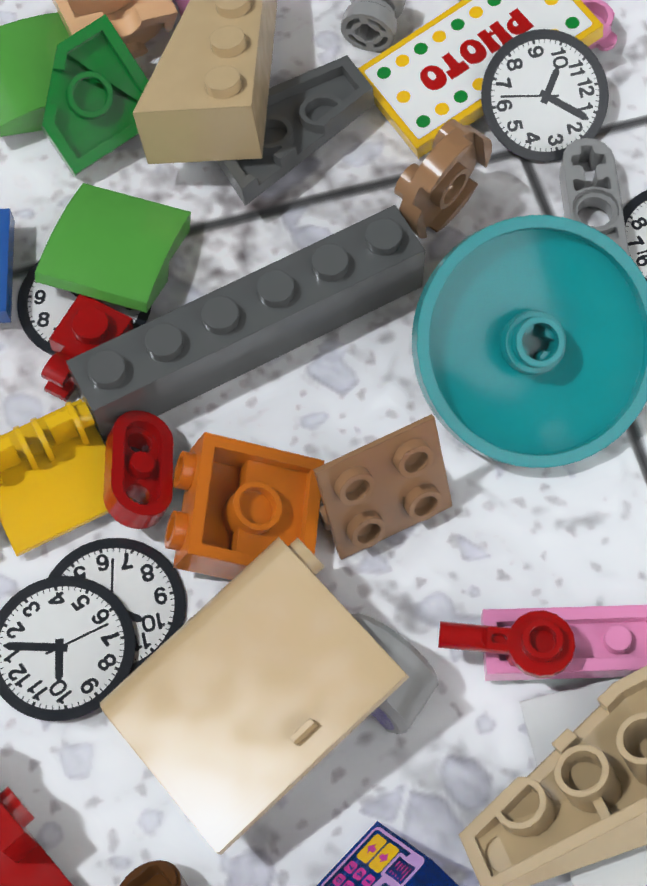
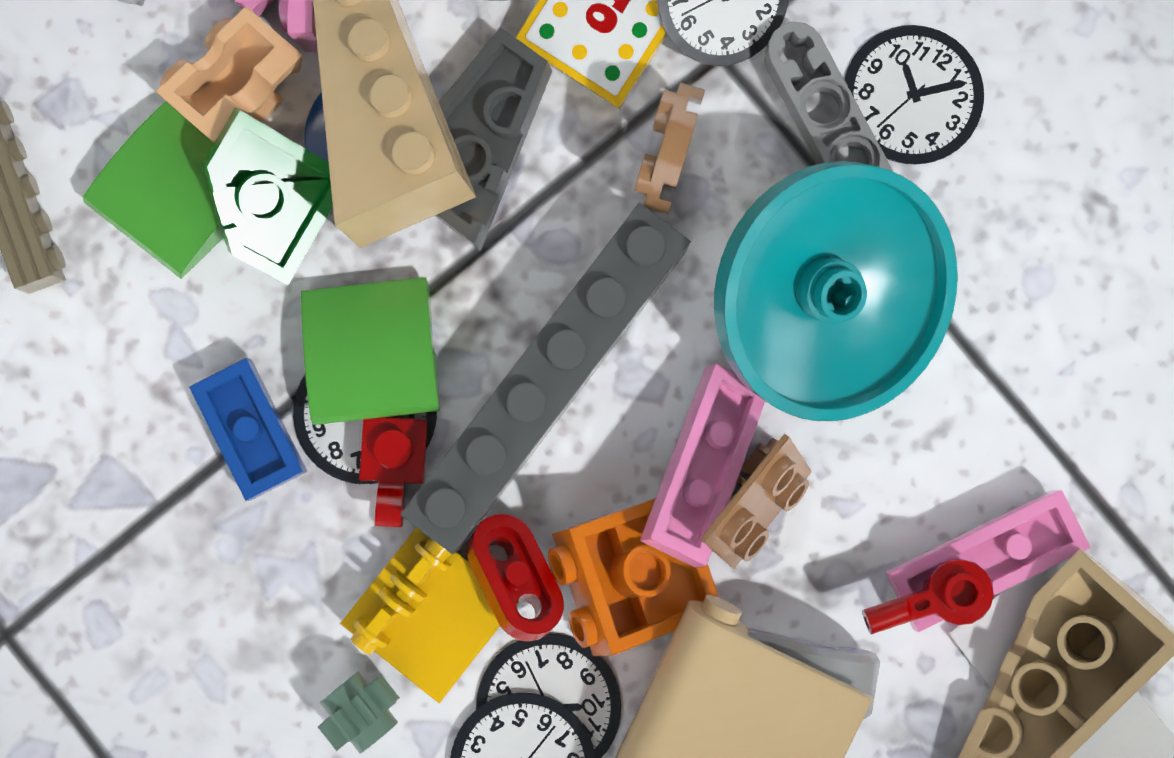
camera: 30 degrees left, 20 degrees up
(374, 415) = (703, 466): none -> bright pink plate

